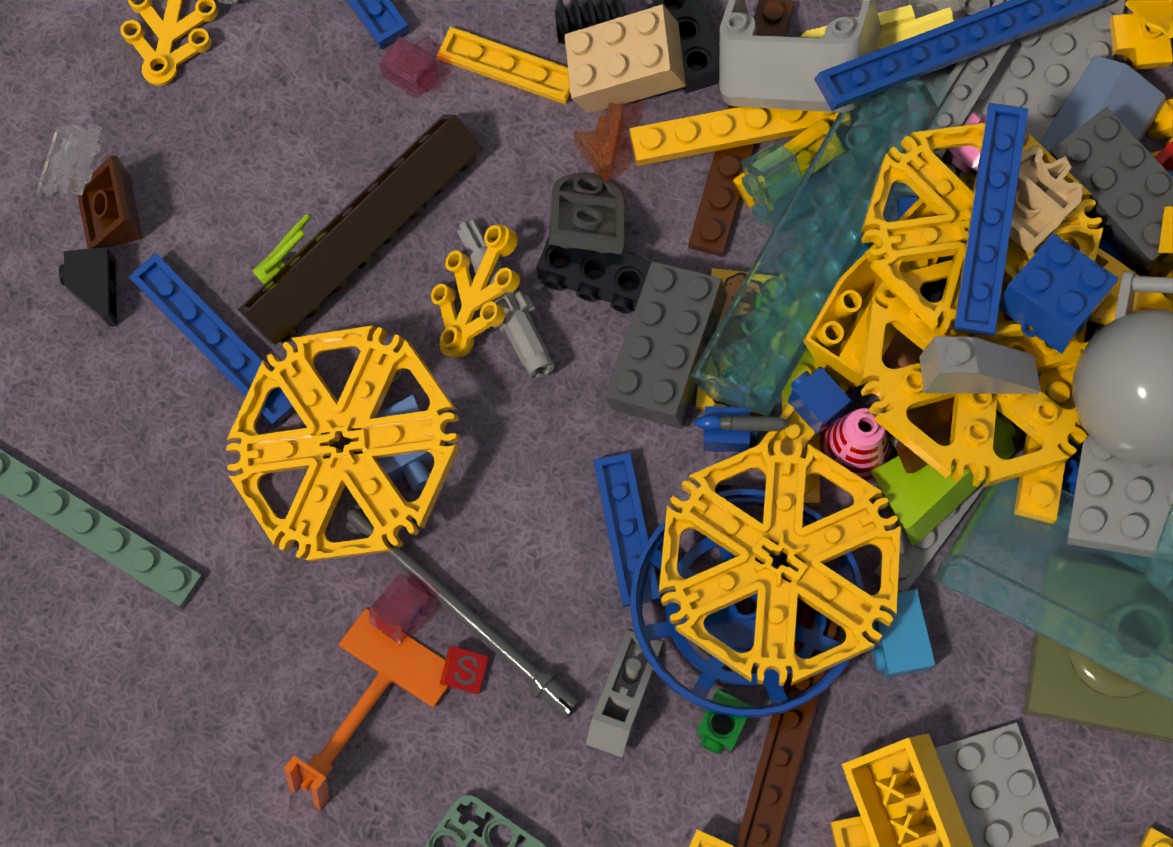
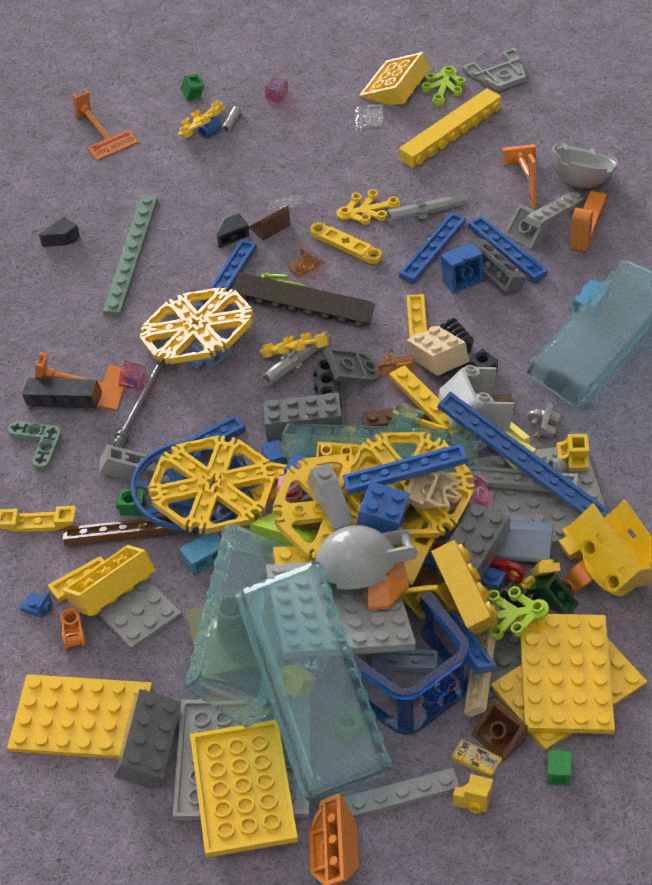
camera: 65 degrees right, 25 degrees down
(222, 110) = (354, 246): none -> yellow piece
(257, 190) = (307, 263): none -> clear orange slope
(379, 762) = (62, 392): none -> black brick
(409, 68) = (392, 287): clear pink brick -> none
(464, 670) = (115, 408): red tile -> none
(741, 423) = (274, 450): dark grey piece -> none

